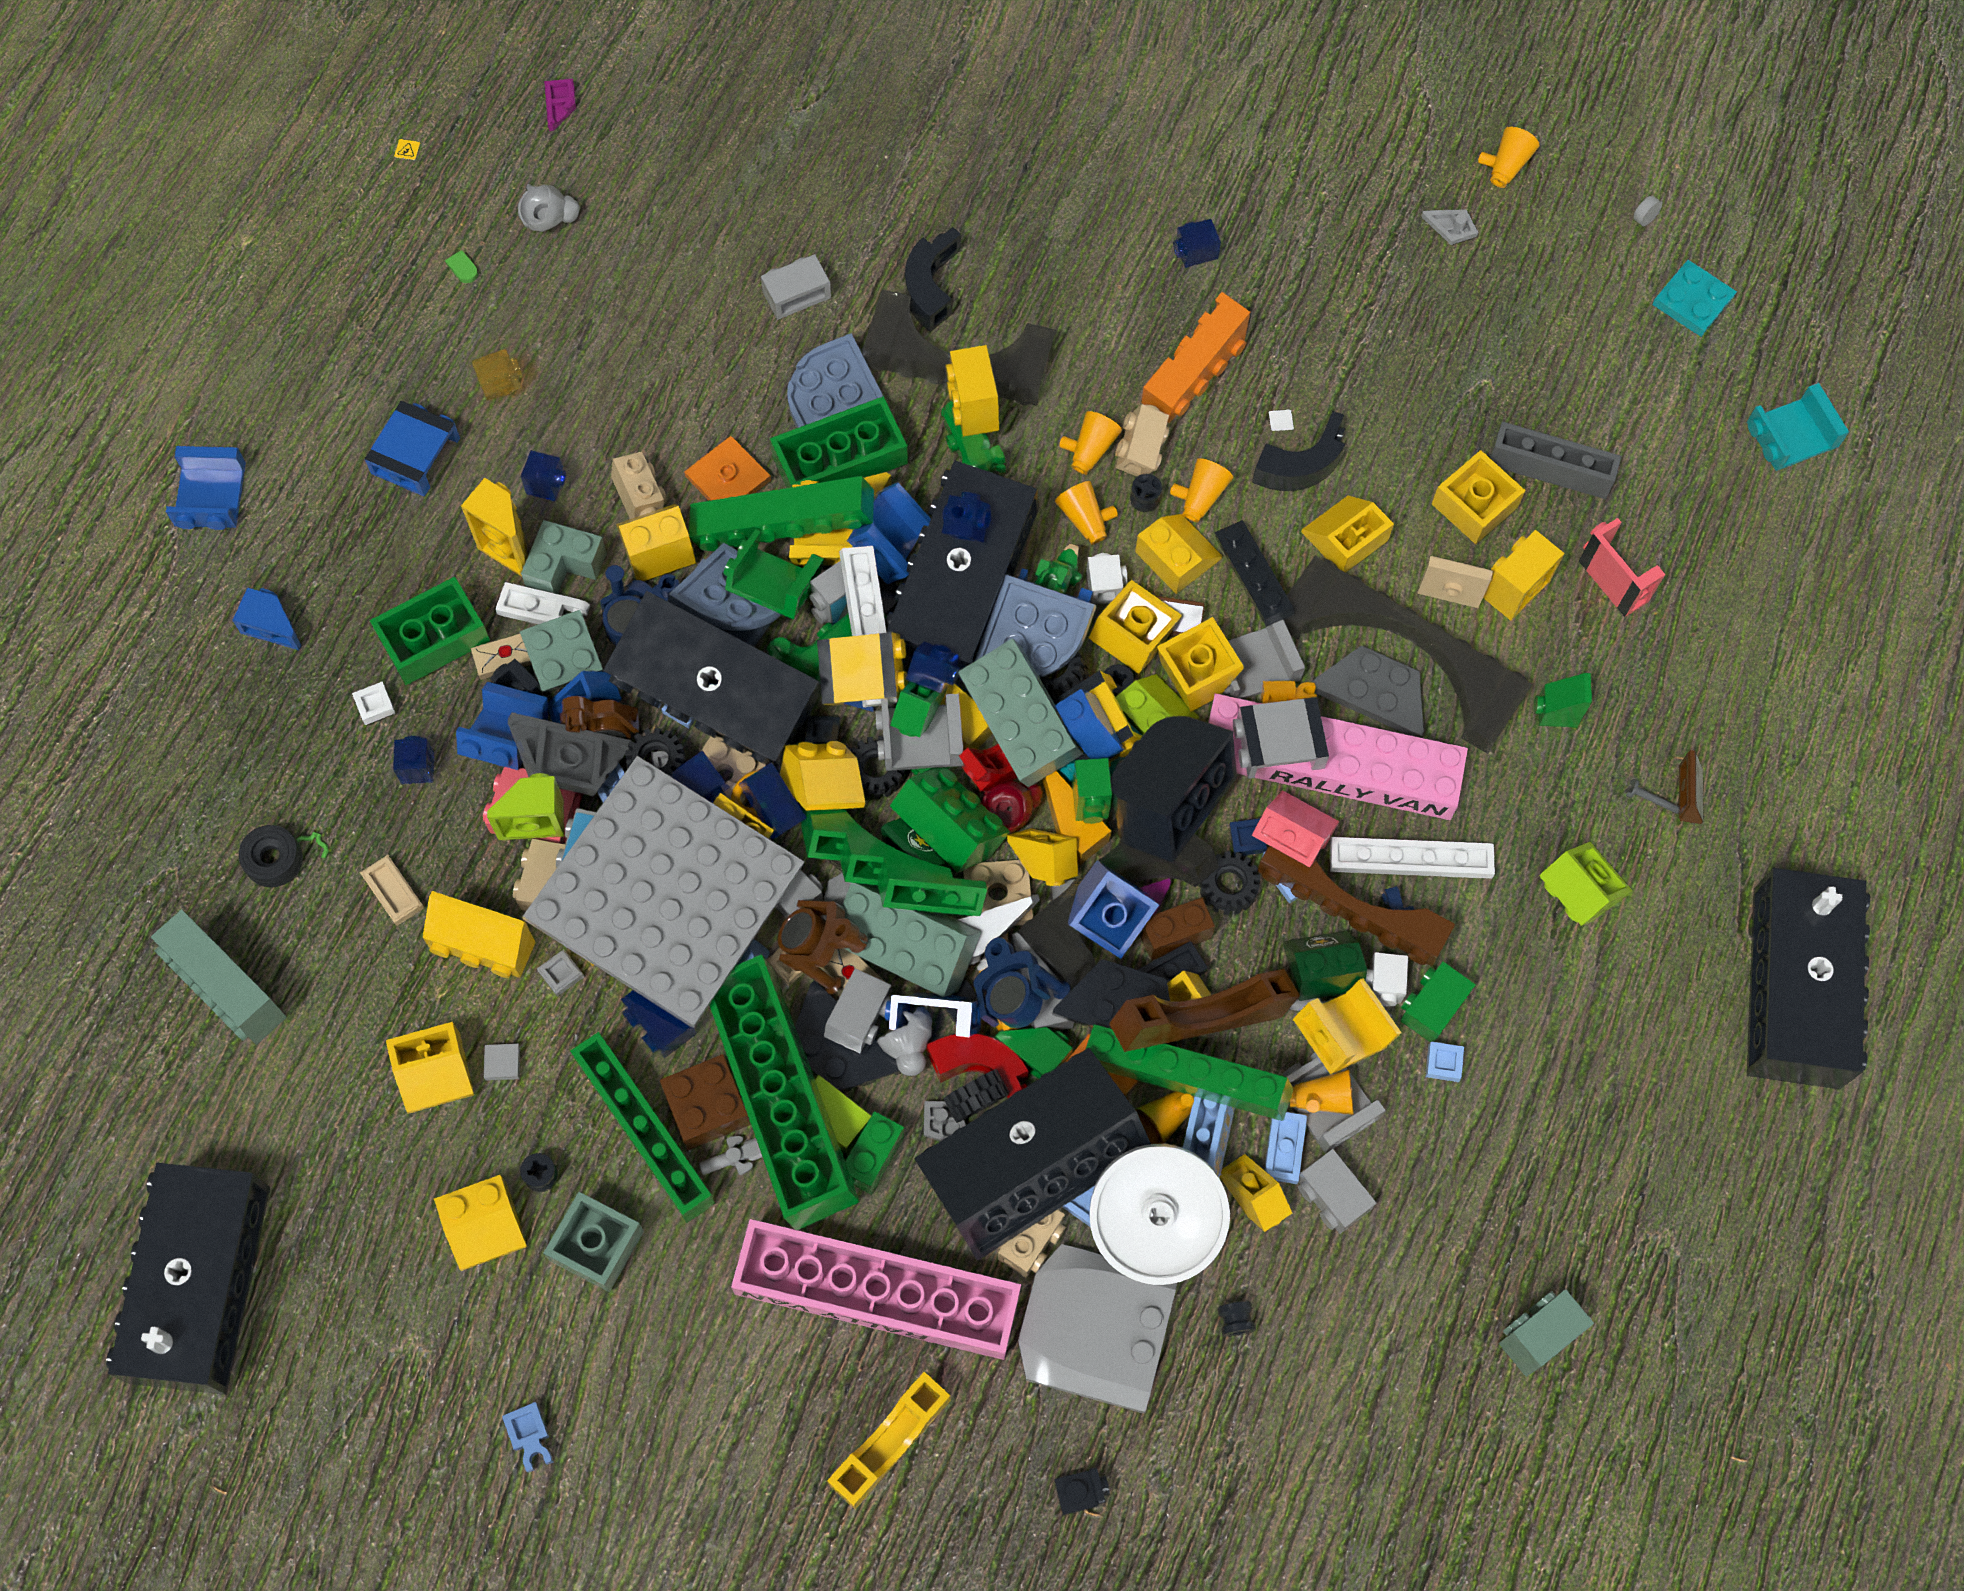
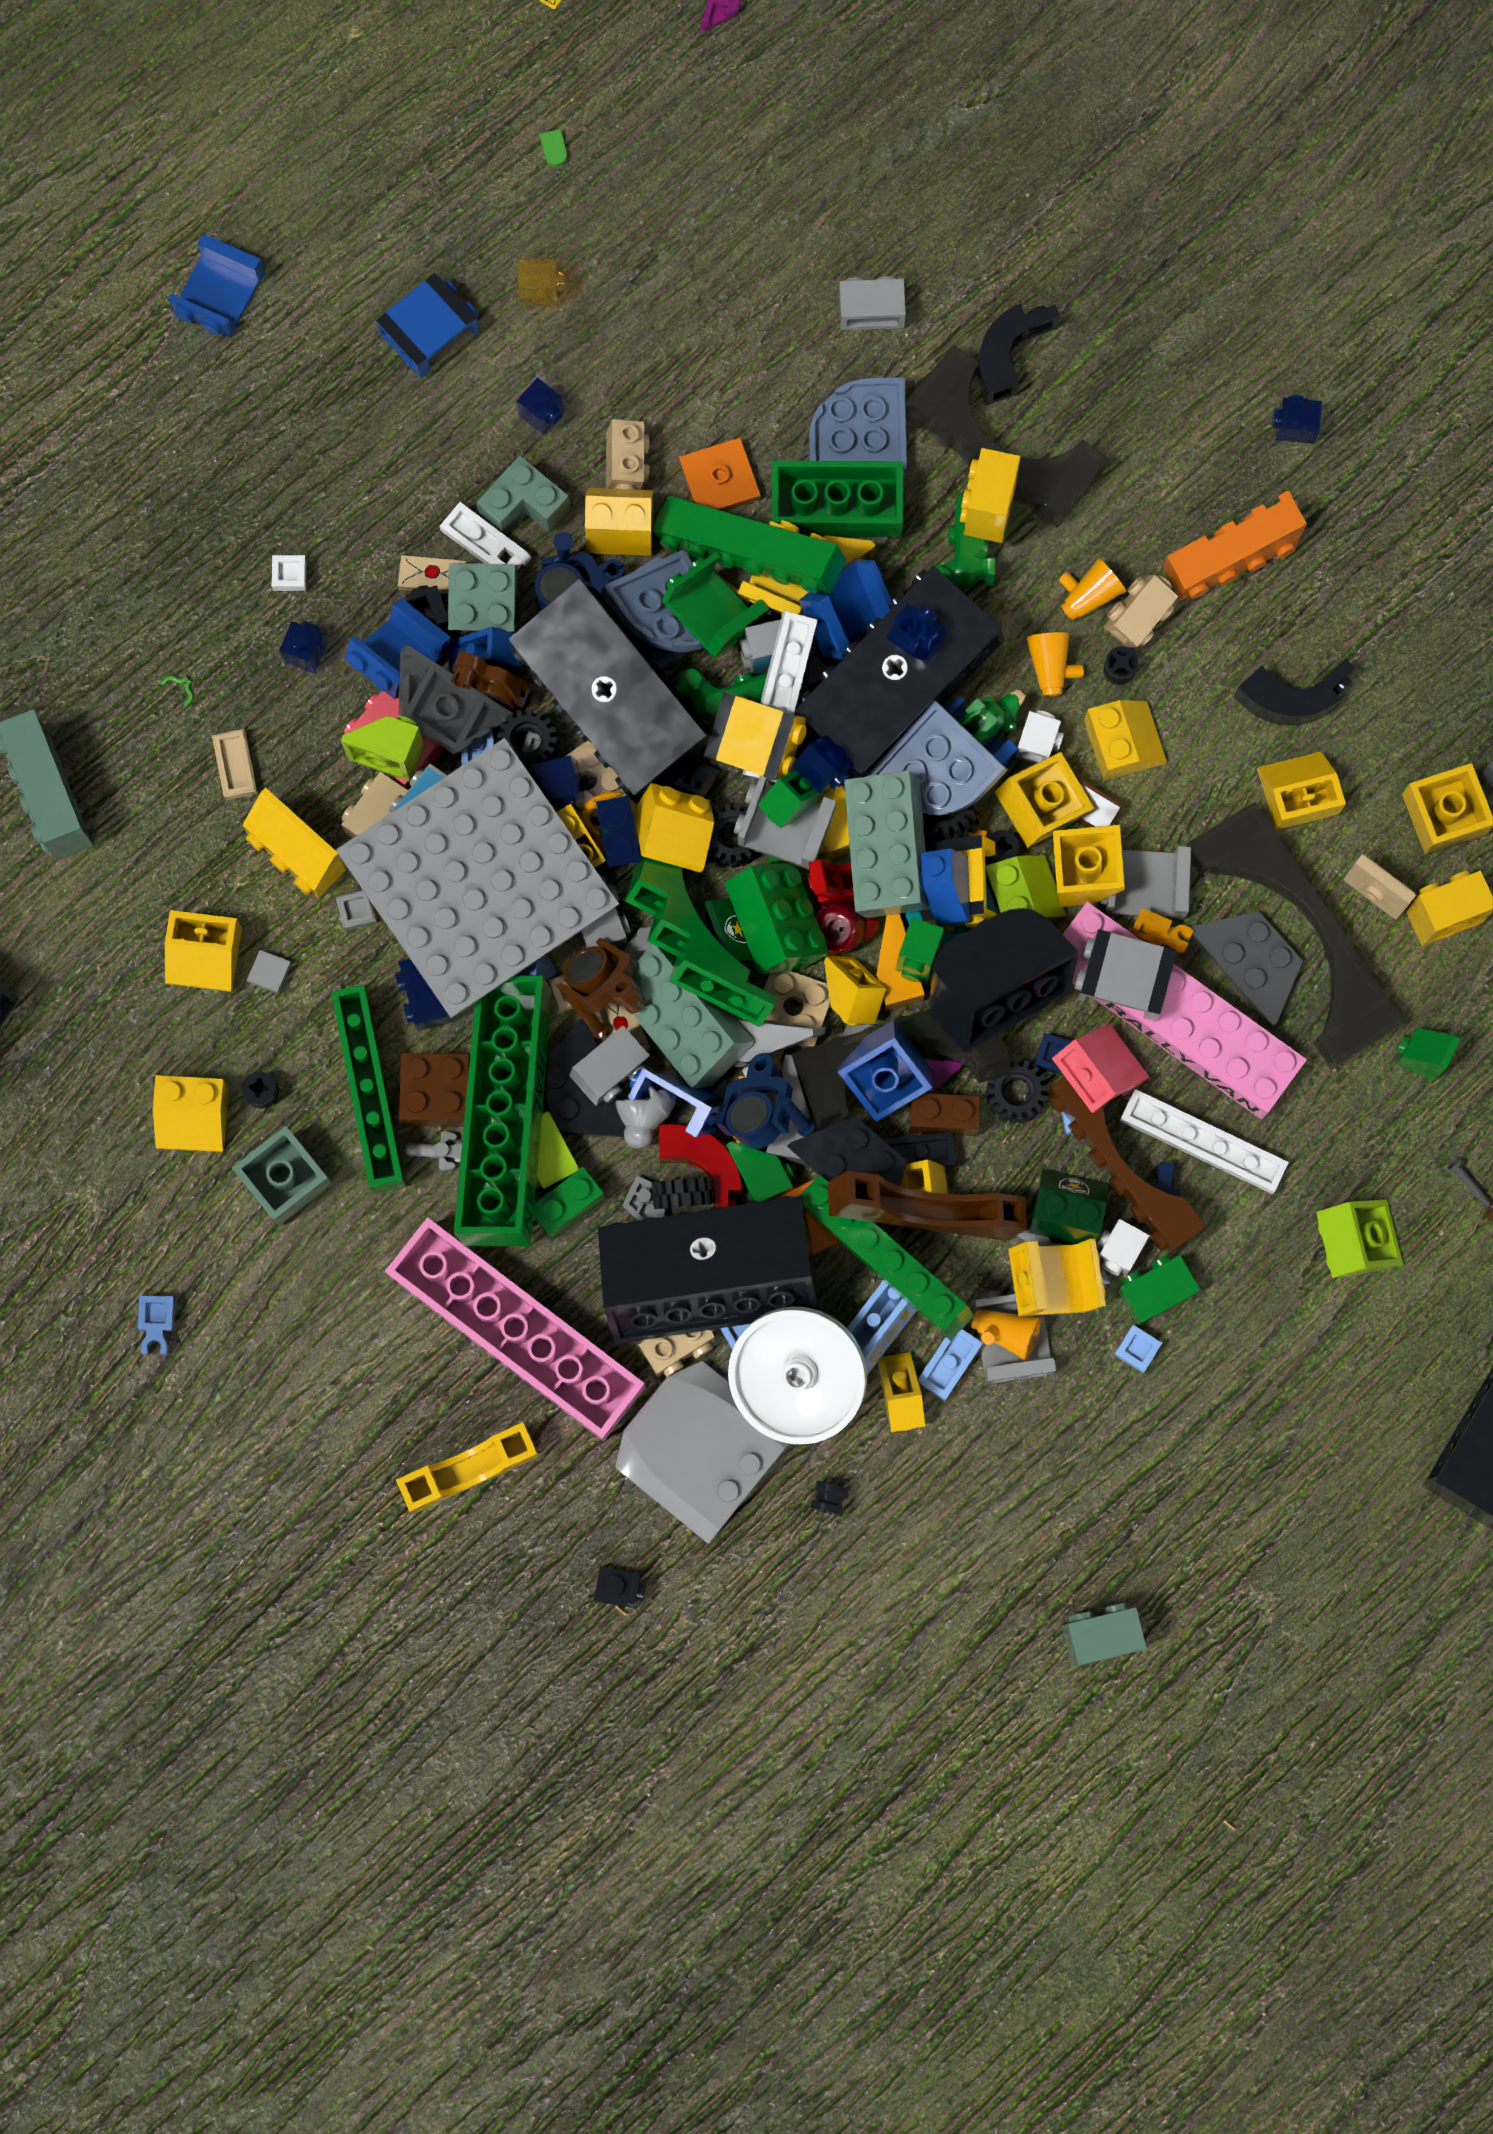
camera: 25 degrees right, 10 degrees up
(260, 841) = (140, 703): black tyre -> none
(265, 618) = (222, 445): blue slope -> none
(430, 630) = (368, 523): green brick -> none
(496, 525) = (473, 443): yellow slope -> none
(546, 207) = (659, 117): light grey piece -> none
(1165, 1115) = (848, 1285): light orange piece -> none
(1205, 487) = (1180, 686): light orange piece -> none
(1254, 573) = (1186, 794): black plate -> none
(1281, 420) = (1294, 643): white sticker -> none
(1335, 1192) = (974, 1424): light grey brick -> none

